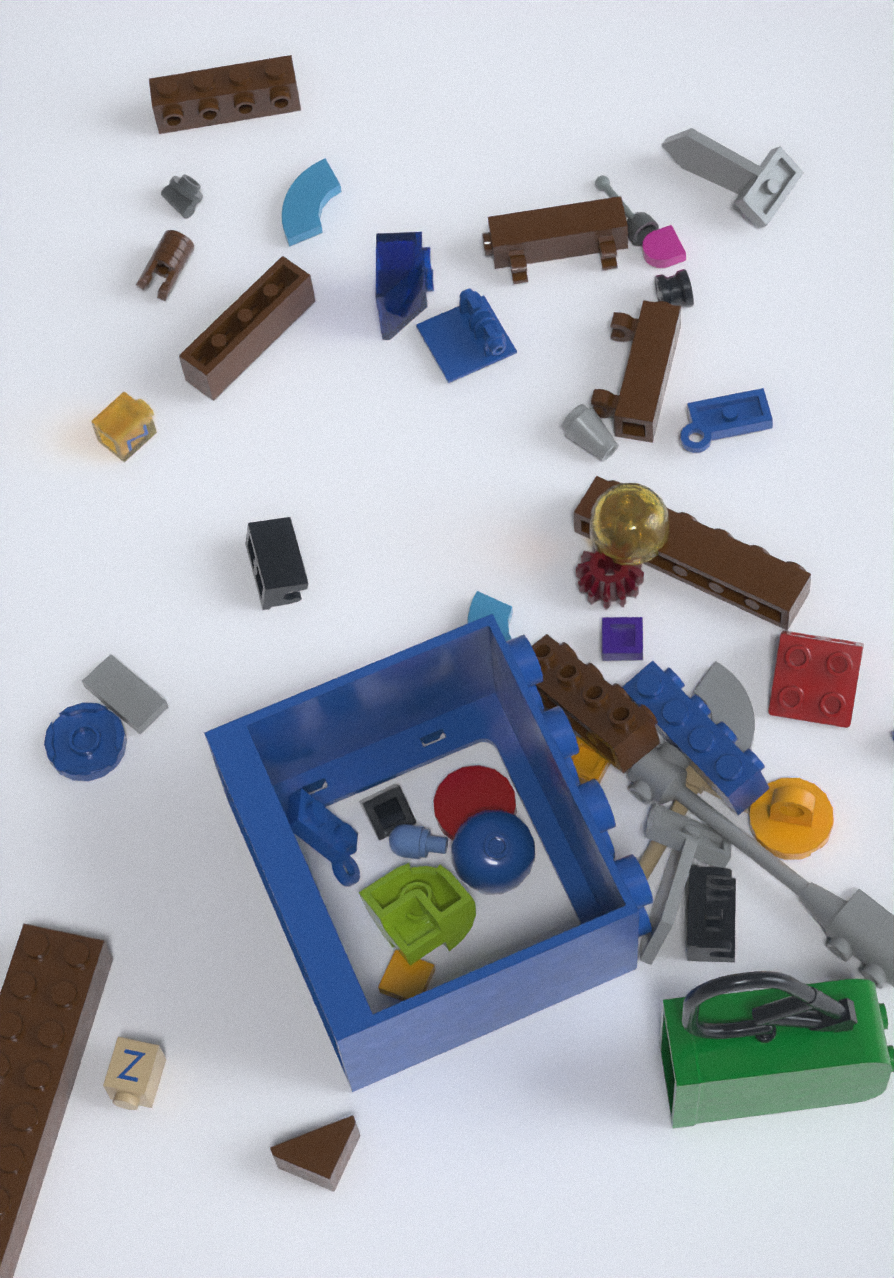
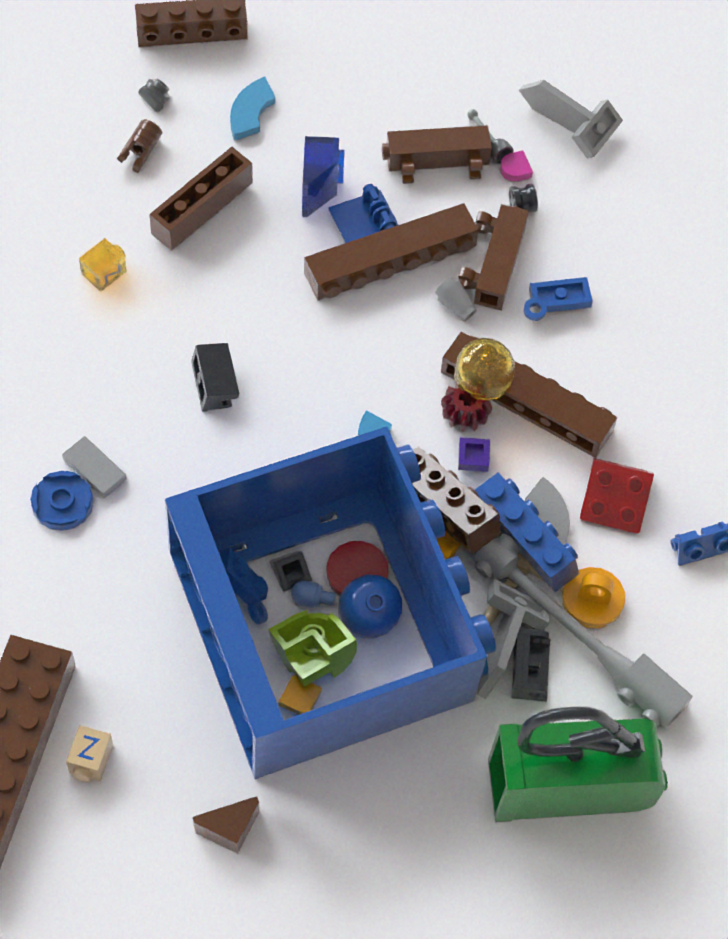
camera: 10 degrees left, 0 degrees up
(501, 376) = (390, 251): none -> reddish brown brick

